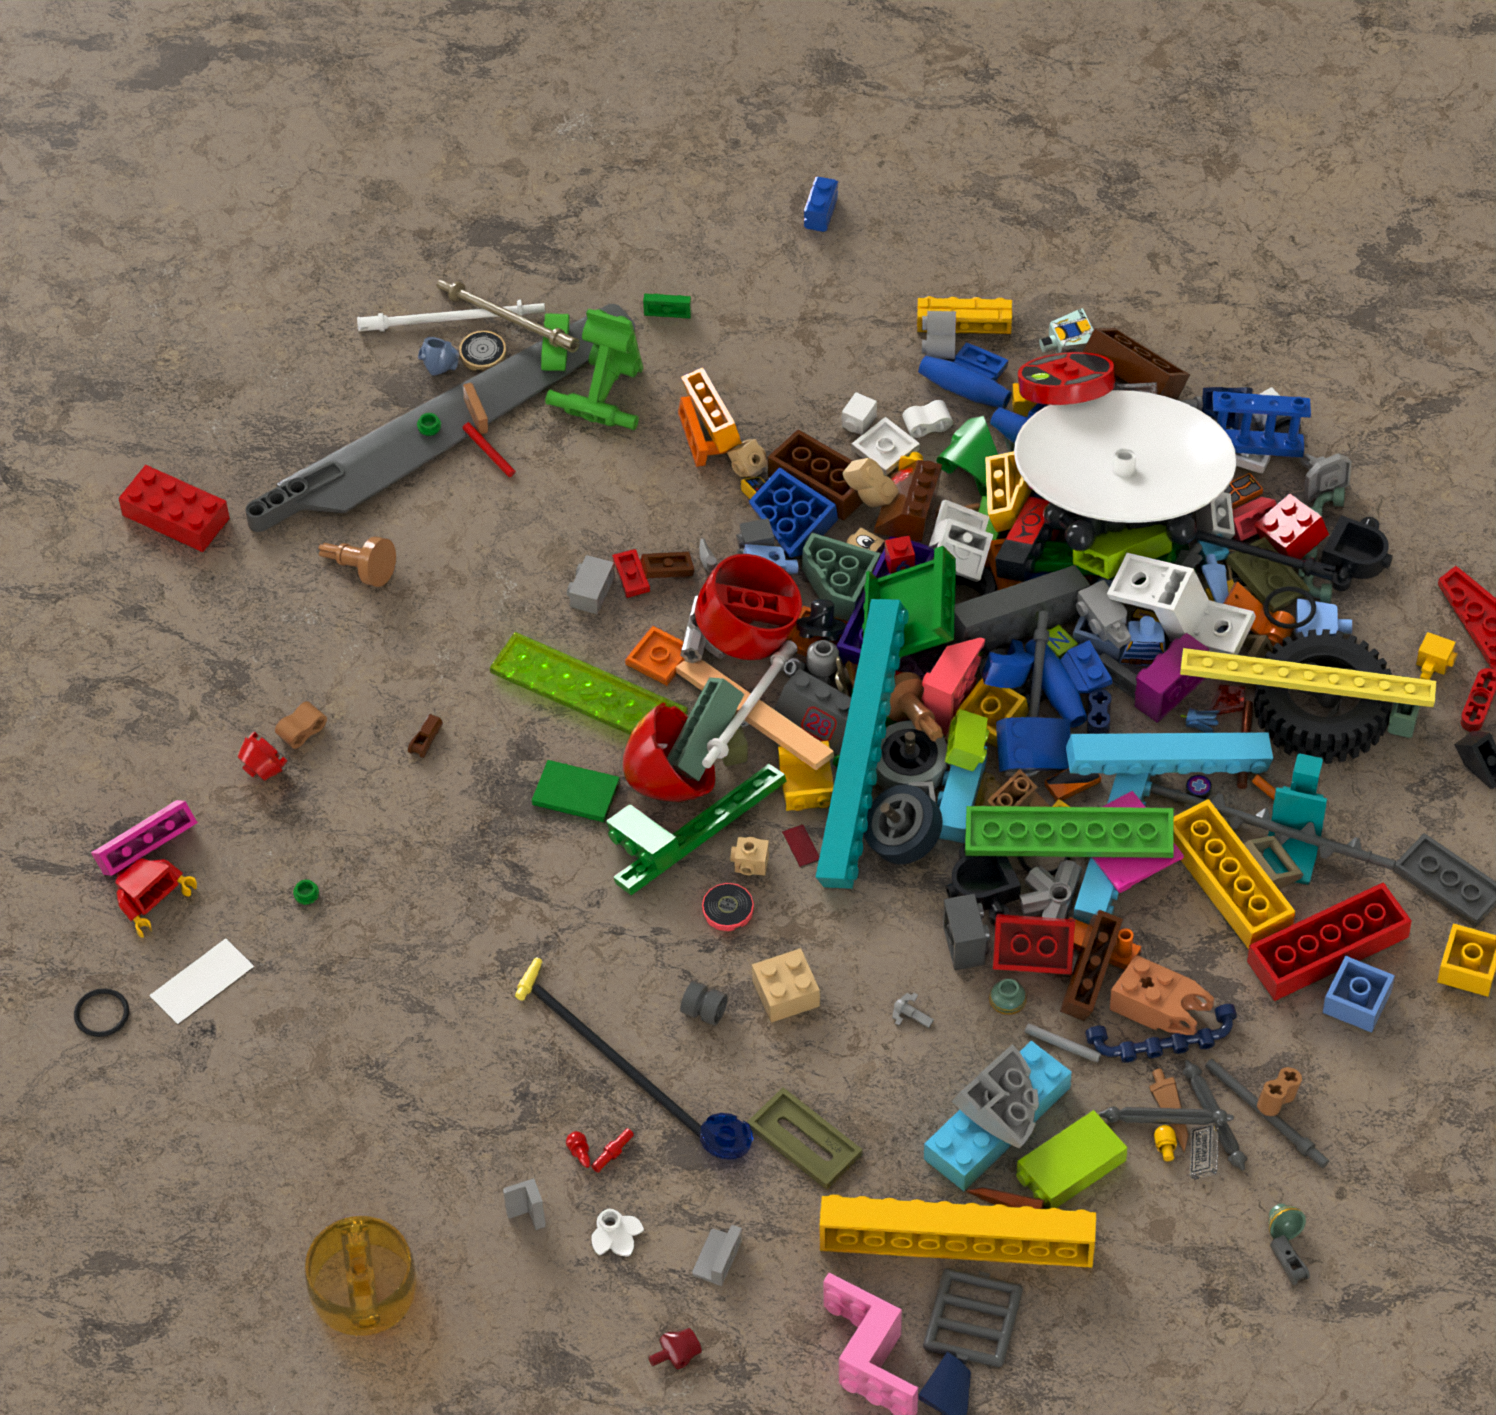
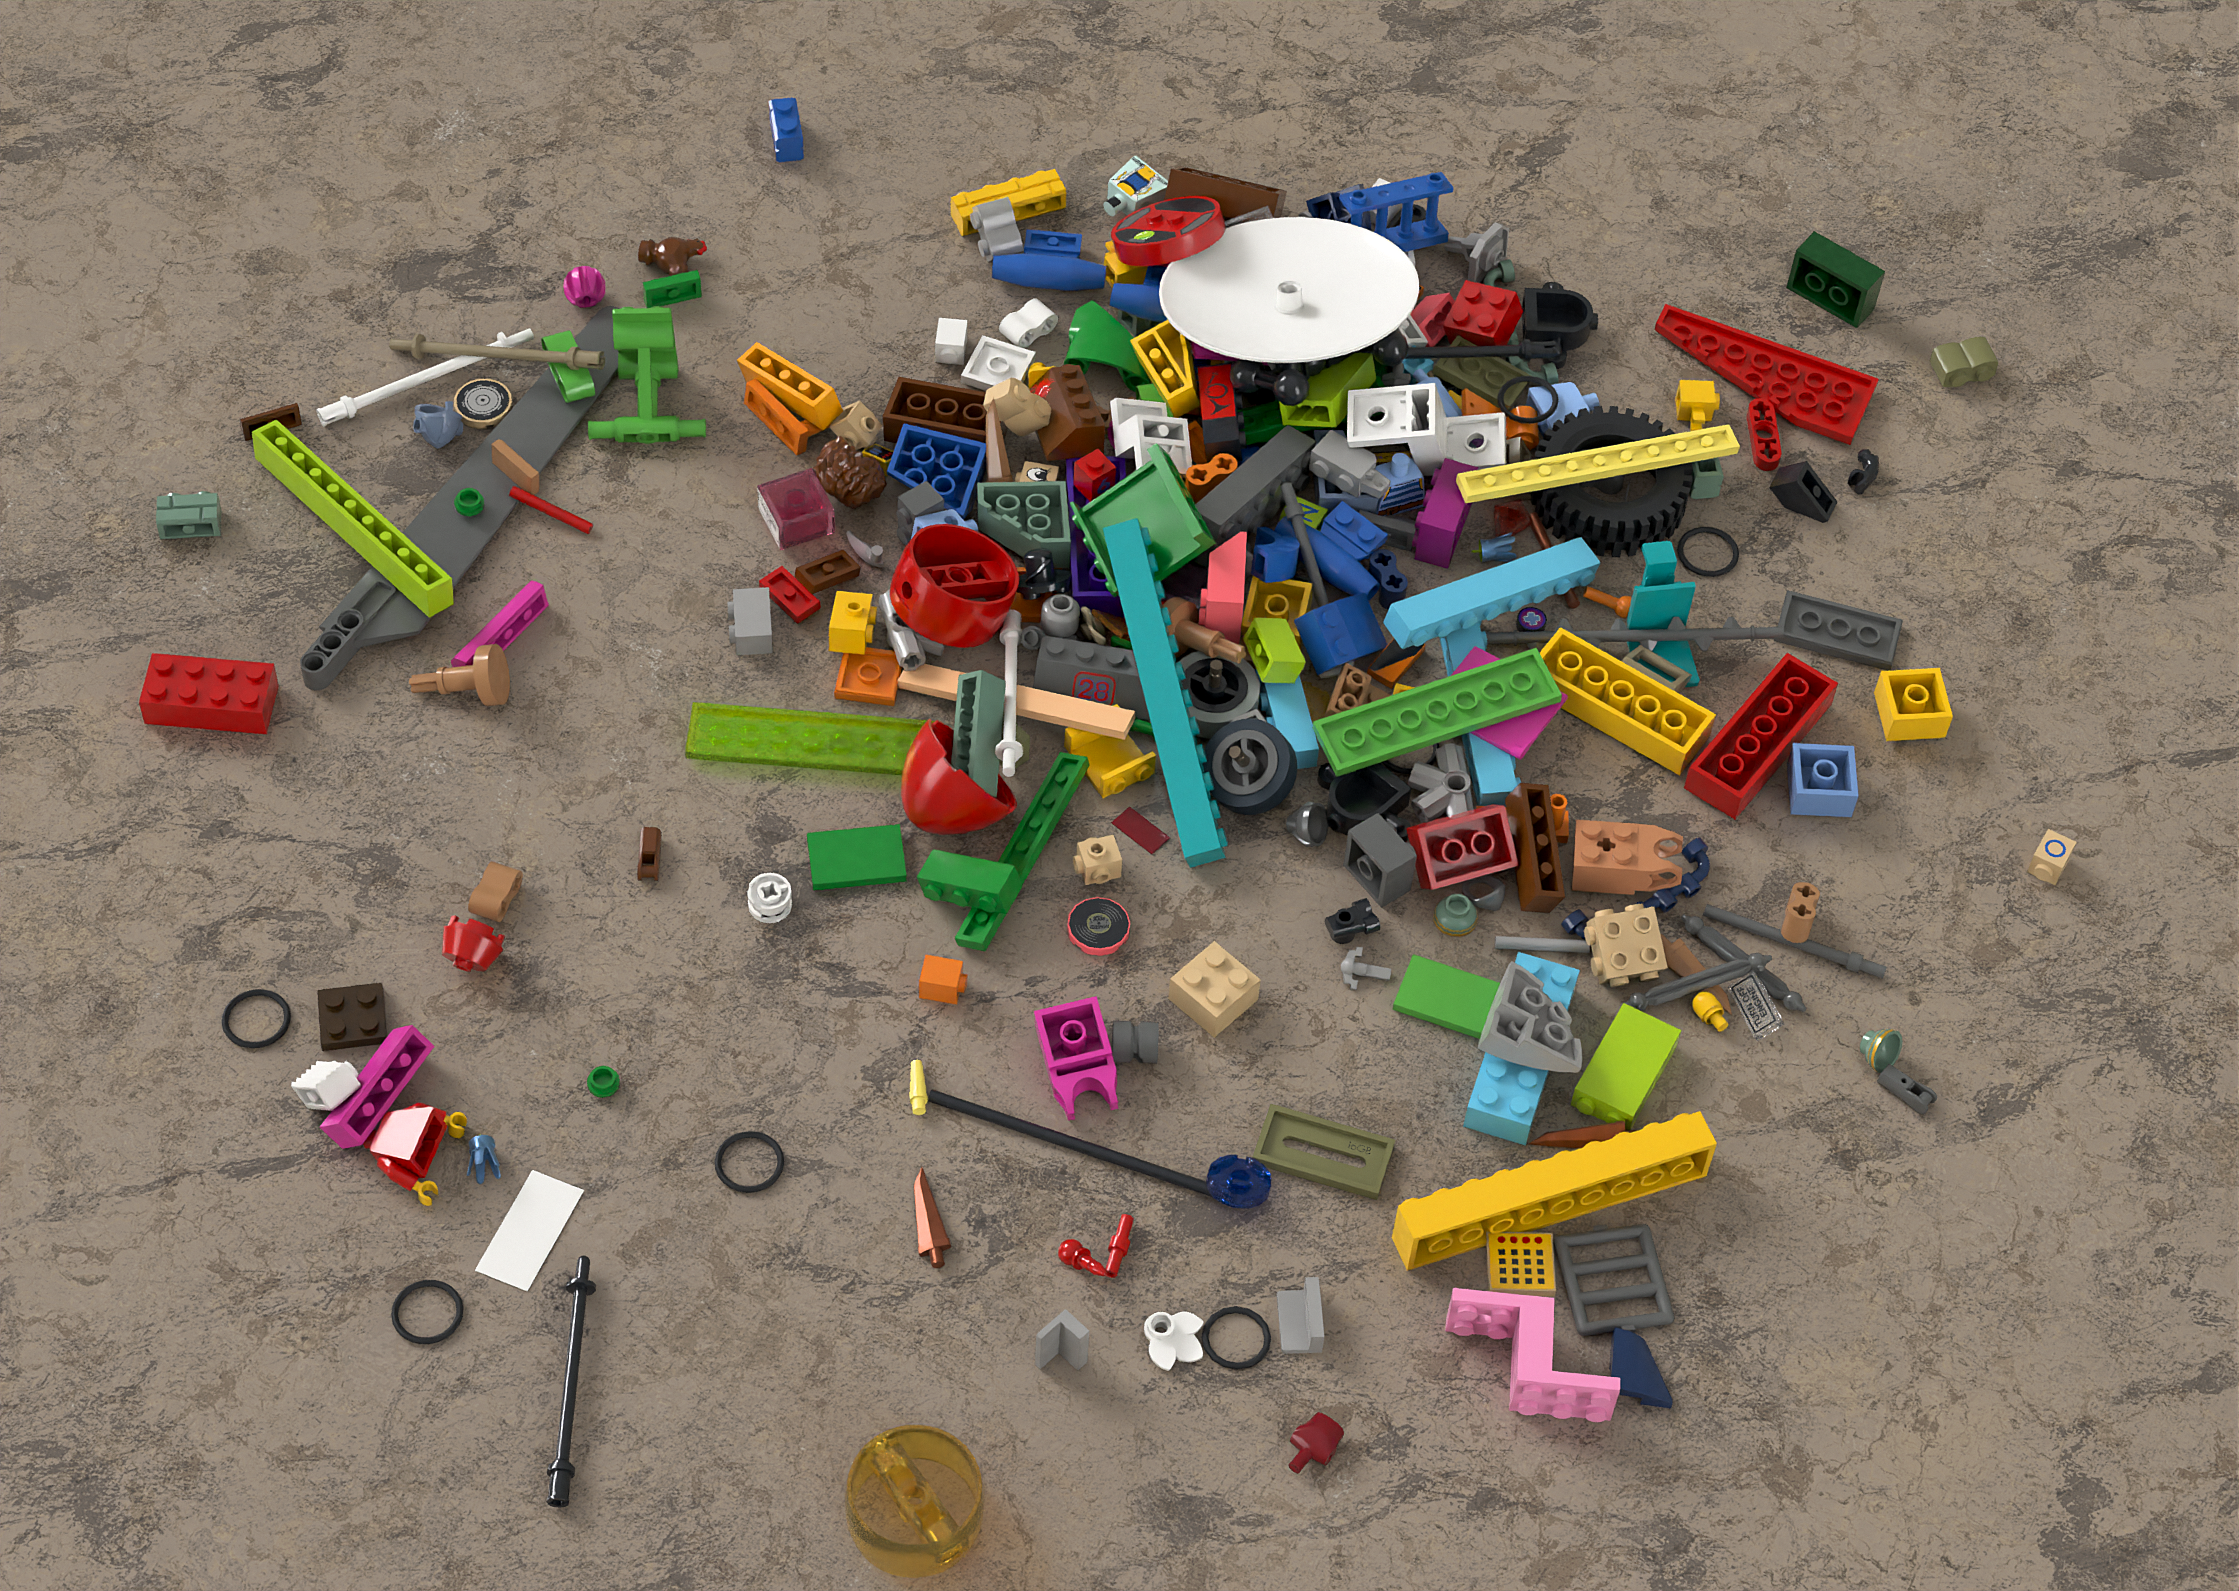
camera: 30 degrees left, 0 degrees up
(97, 777) = (256, 992): none -> black tyre
(109, 823) = (326, 1085): none -> white brick
(133, 1158) = (561, 1469): none -> black bar
(156, 780) = (352, 1016): none -> dark brown plate
(194, 912) = (482, 1149): none -> flat silver piece
(226, 369) = (188, 515): none -> sand green brick
(321, 316) = (288, 416): none -> reddish brown slope
(336, 410) = (353, 518): none -> lime brick
(384, 1009) = (749, 1134): none -> black tyre
(414, 525) = (507, 623): none -> dark pink brick
(482, 1089) = (930, 1228): none -> copper bar
(495, 797) = (769, 896): none -> white wheel
(587, 904) = (942, 979): none -> orange brick
(601, 283) = (584, 286): none -> dark pink piece
(655, 995) = (1080, 1063): none -> dark pink brick
(662, 610) = (851, 622): none -> yellow brick
(667, 508) = (796, 508): none -> clear pink brick
(667, 1272) = (1234, 1365): none -> black piece
(681, 276) = (670, 253): none -> reddish brown animal
(717, 496) = (848, 474): none -> reddish brown hair
(838, 521) = (996, 457): none -> medium nougat bar
(908, 1278) = (1521, 1263): none -> yellow tile
(916, 972) = (1351, 921): none -> black plate
(930, 886) = (1309, 824): none -> dark grey piece
(959, 1051) = (1445, 996): none -> bright green tile
(982, 584) = (1205, 477): none -> orange axle
(1043, 994) = (1491, 901): none -> dark grey piece
(1122, 1066) = (1625, 945): none -> tan brick
(1374, 799) = (1687, 564): none -> black tyre

